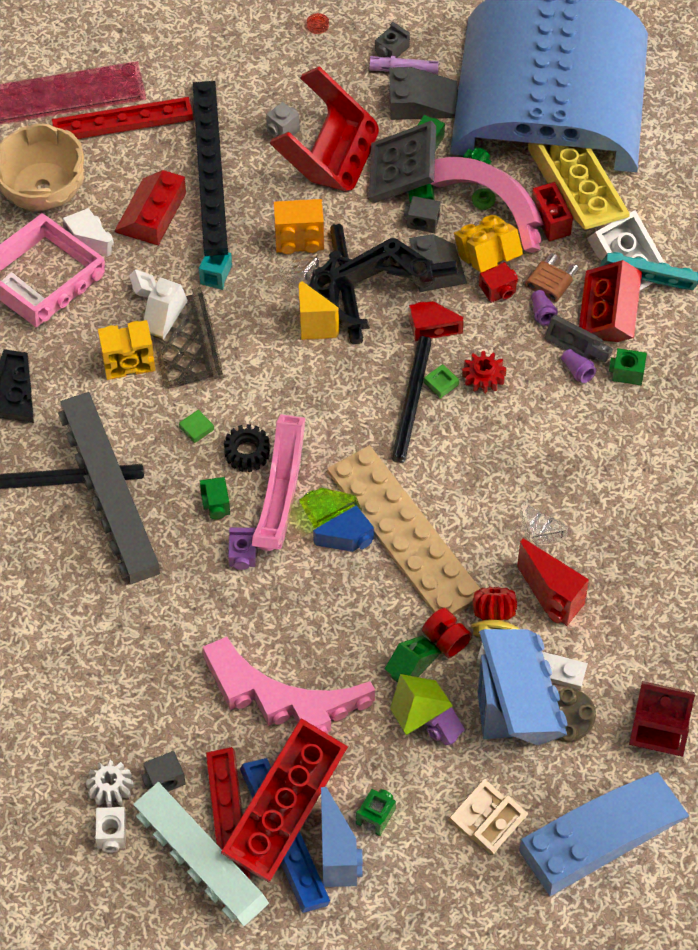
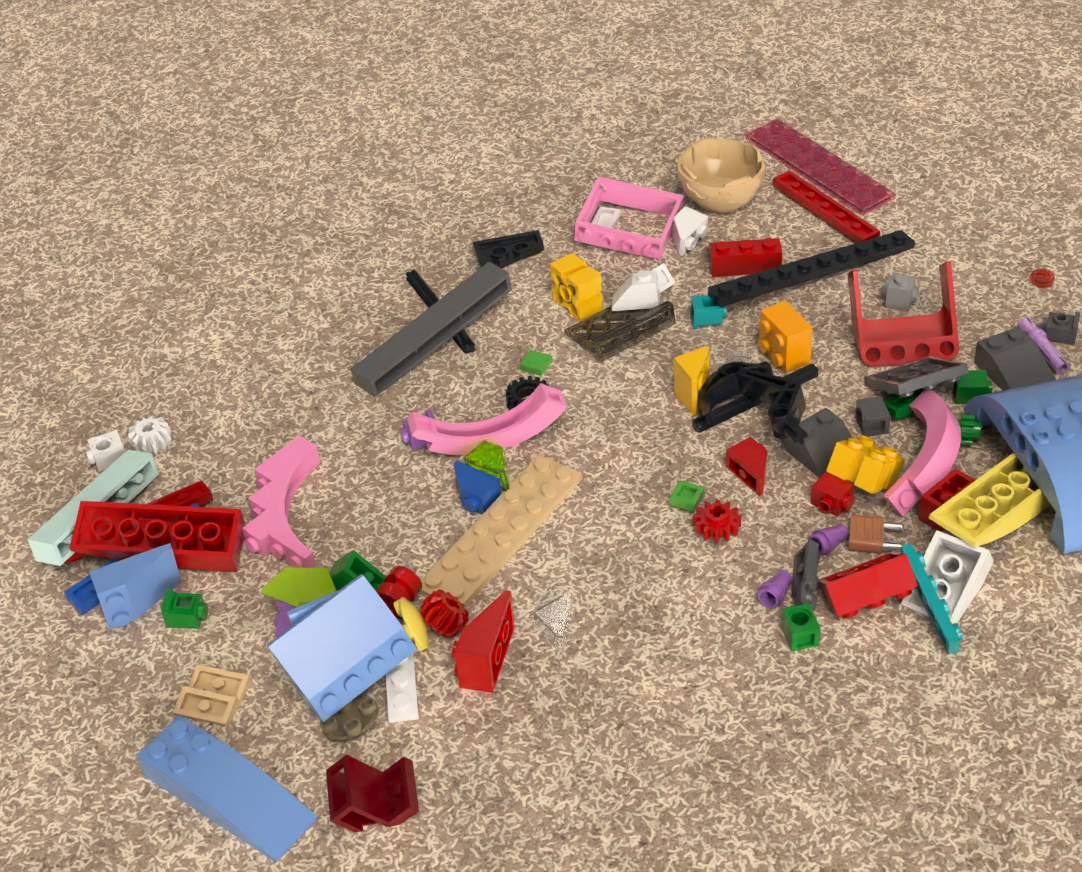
camera: 70 degrees right, 15 degrees down
(164, 770) = (172, 462): dark grey brick -> none
(215, 497) = (463, 396): green brick -> none
(411, 399) = (653, 484): black axle -> none

